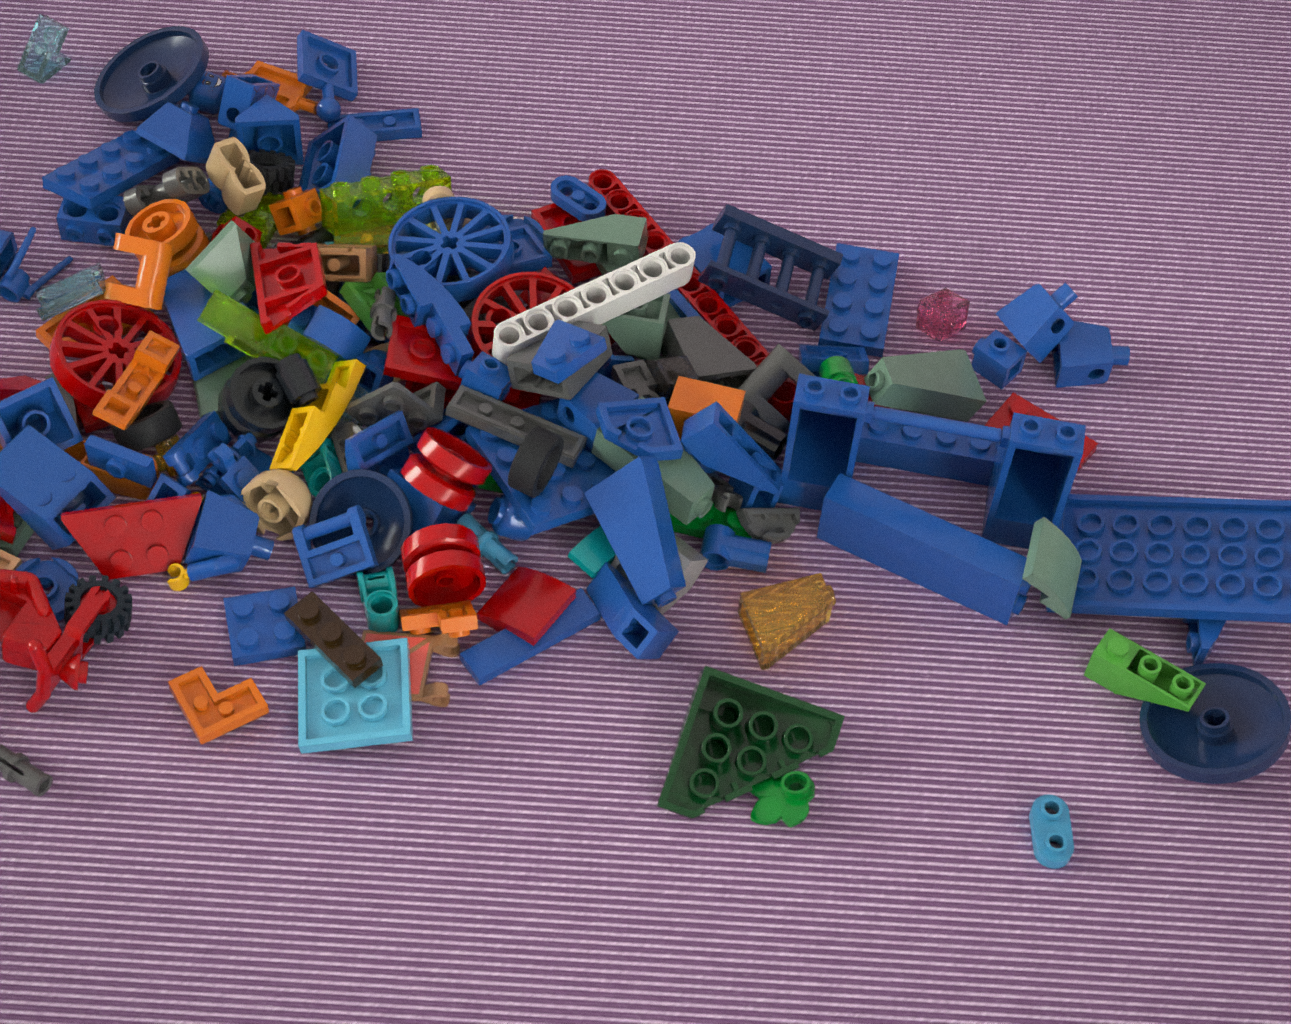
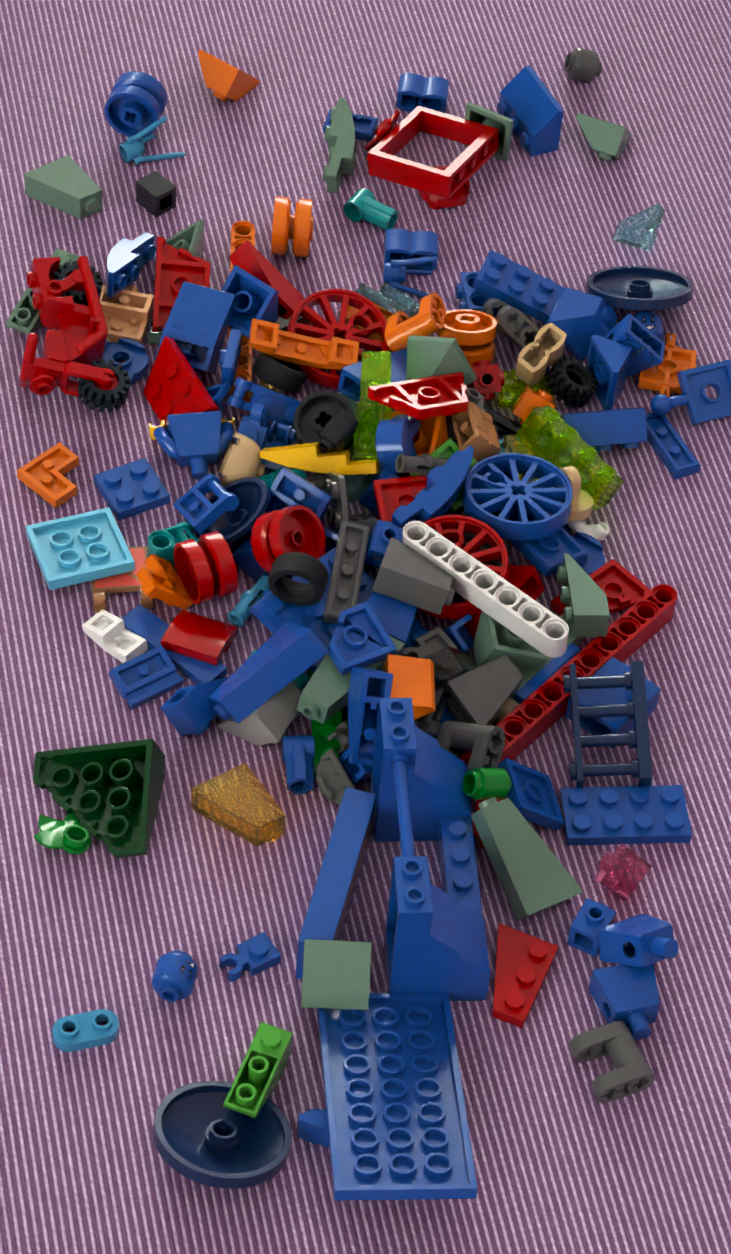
camera: 75 degrees right, 5 degrees down
(333, 639) = (119, 520): dark brown plate -> none
(500, 692) = (110, 634): none -> white slope
(566, 351) = (401, 562): blue wing -> none
(574, 670) = (146, 677): none -> blue plate
(577, 198) = (632, 581): blue plate -> none
(979, 652) = (253, 954): none -> blue plate
(1006, 726) = (175, 976): none -> blue head
(1136, 377) = (631, 1070): none -> dark grey connector

